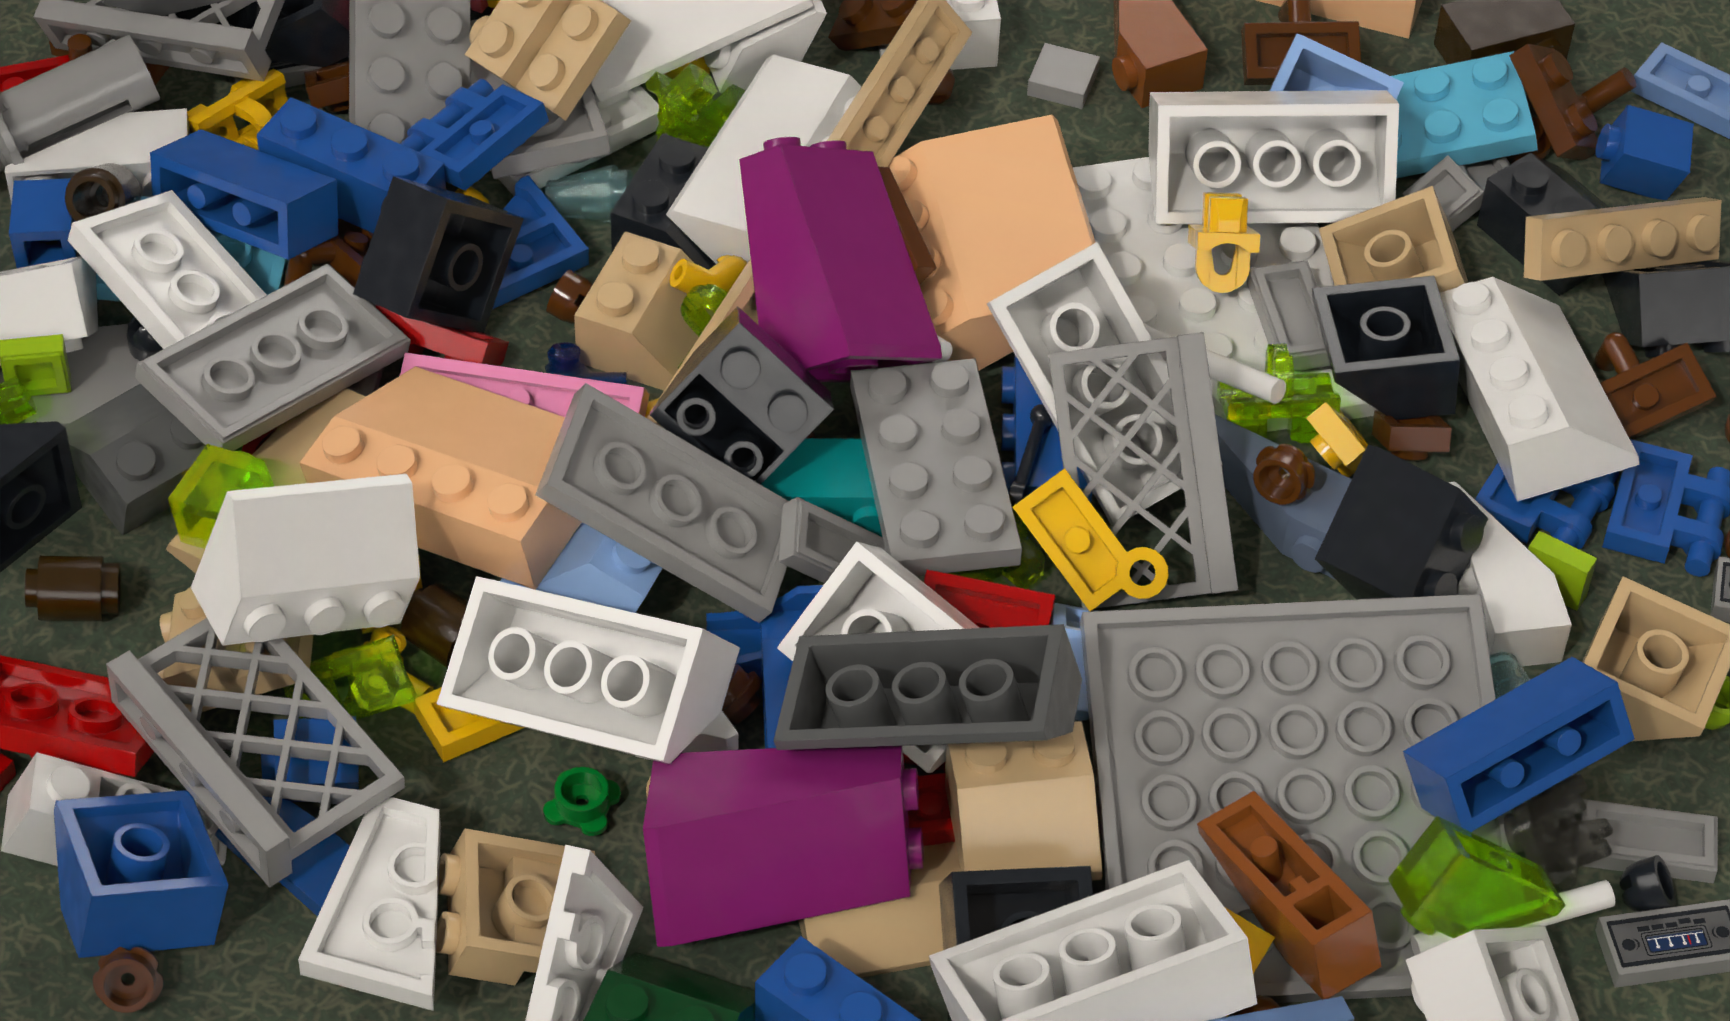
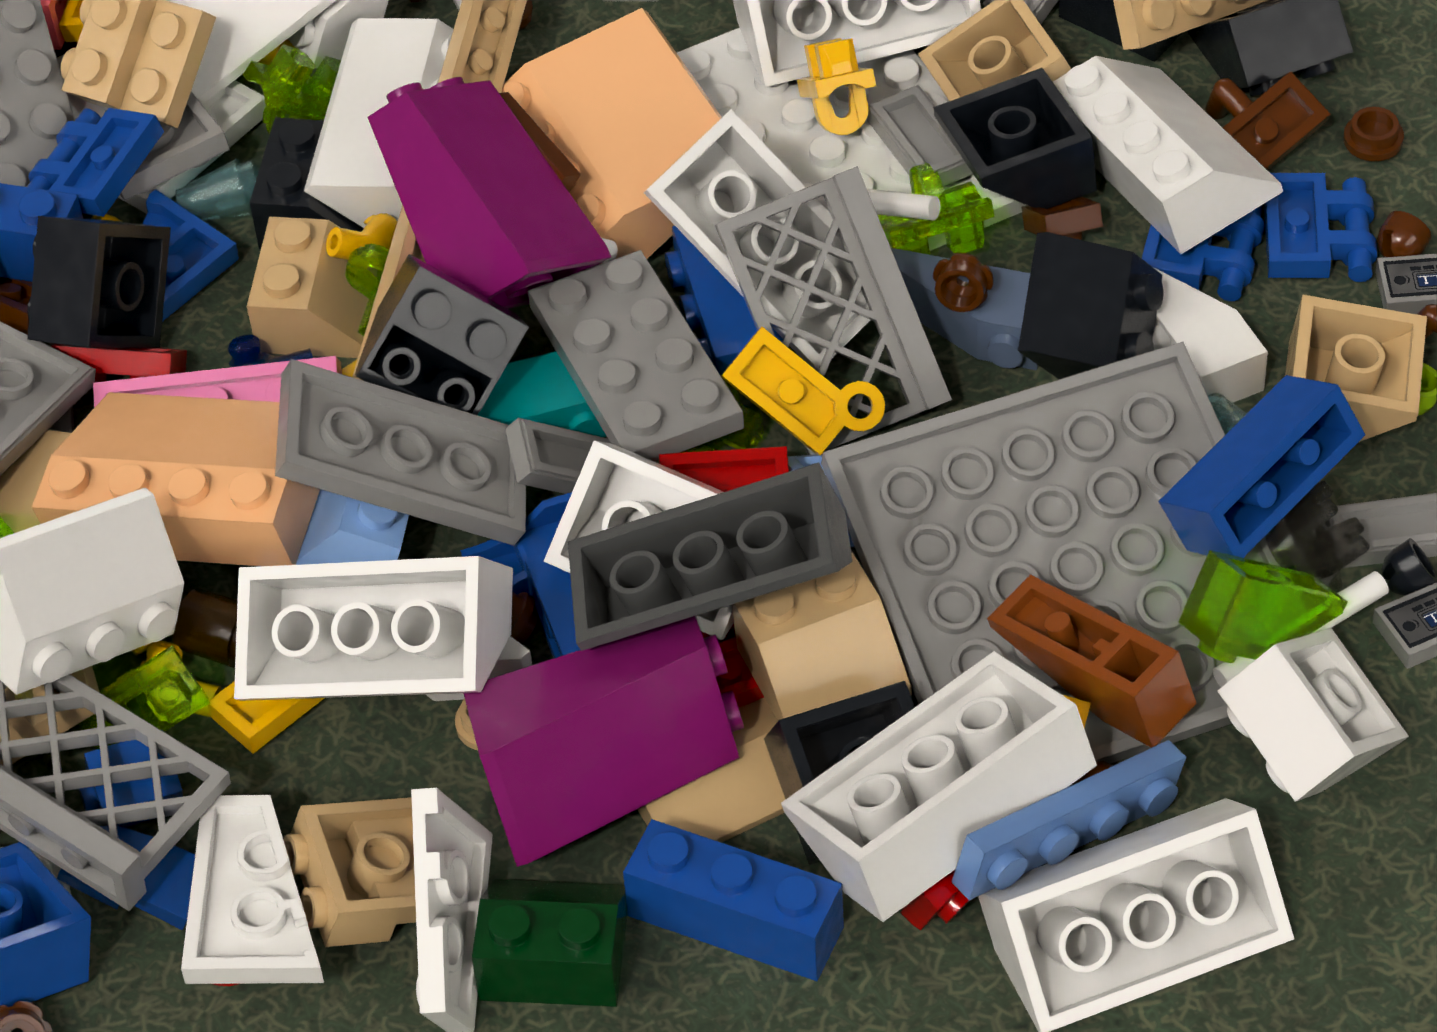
camera: 10 degrees left, 0 degrees up
(568, 296) = (231, 293): reddish brown hinge -> none
(582, 784) = (396, 738): green plate -> none
(1040, 421) = (720, 289): black hinge -> none
(1337, 439) = (1003, 241): yellow hinge -> none
(1570, 565) = (1247, 298): lime tile -> none

